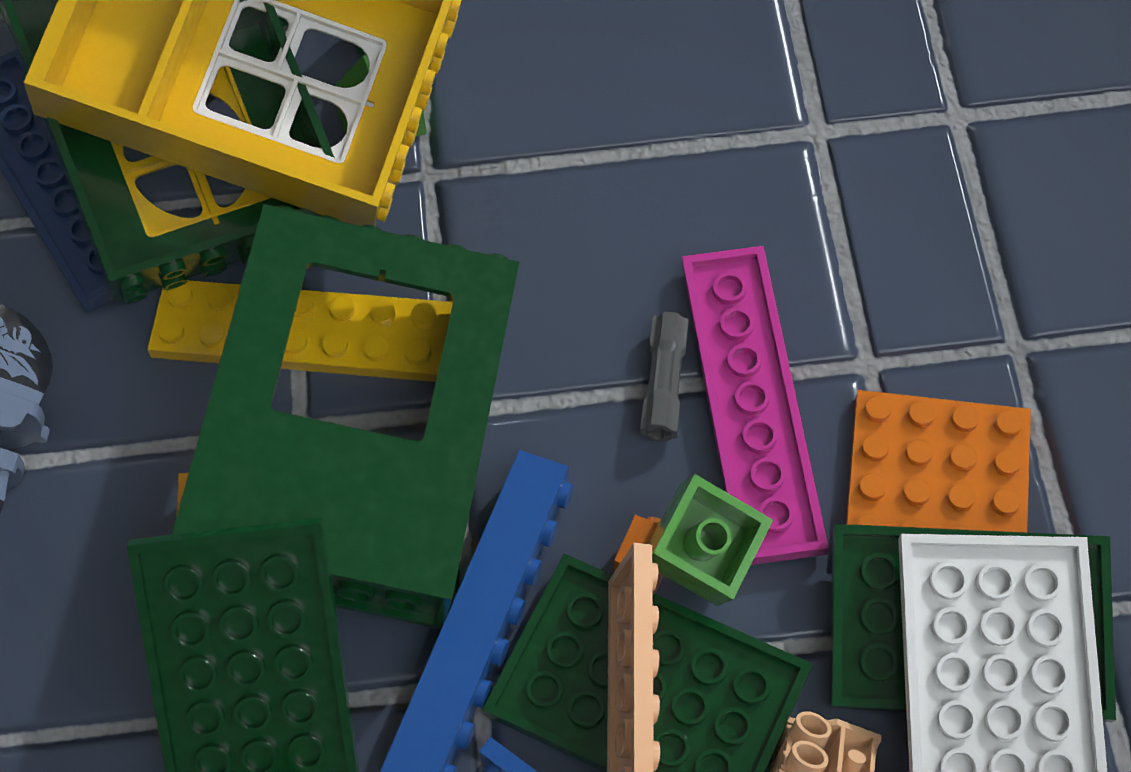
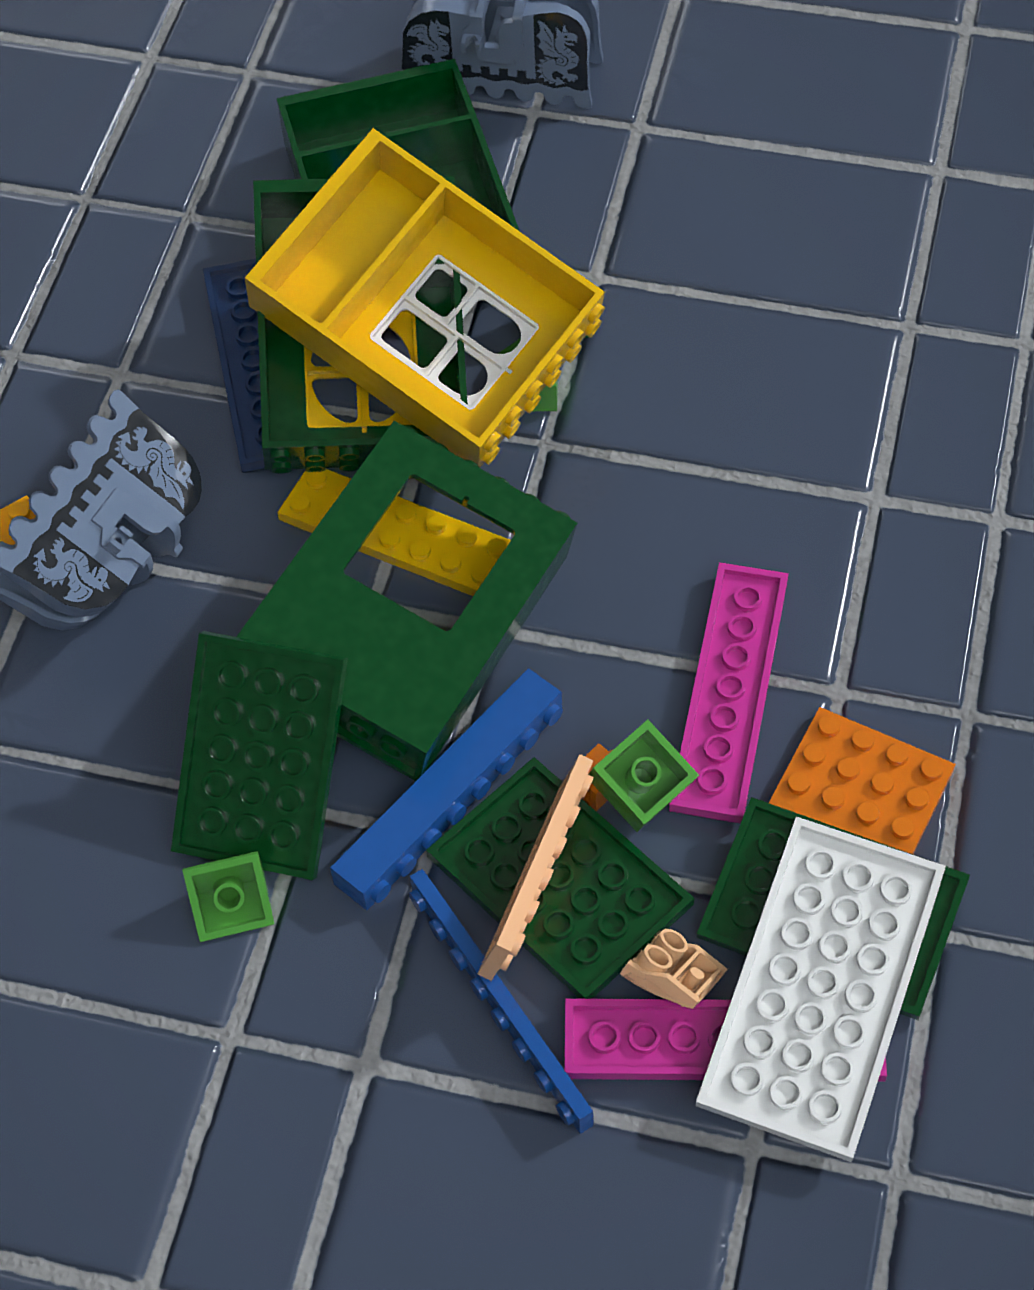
camera: 20 degrees right, 5 degrees down
(662, 403) = (657, 670): dark grey axle -> none

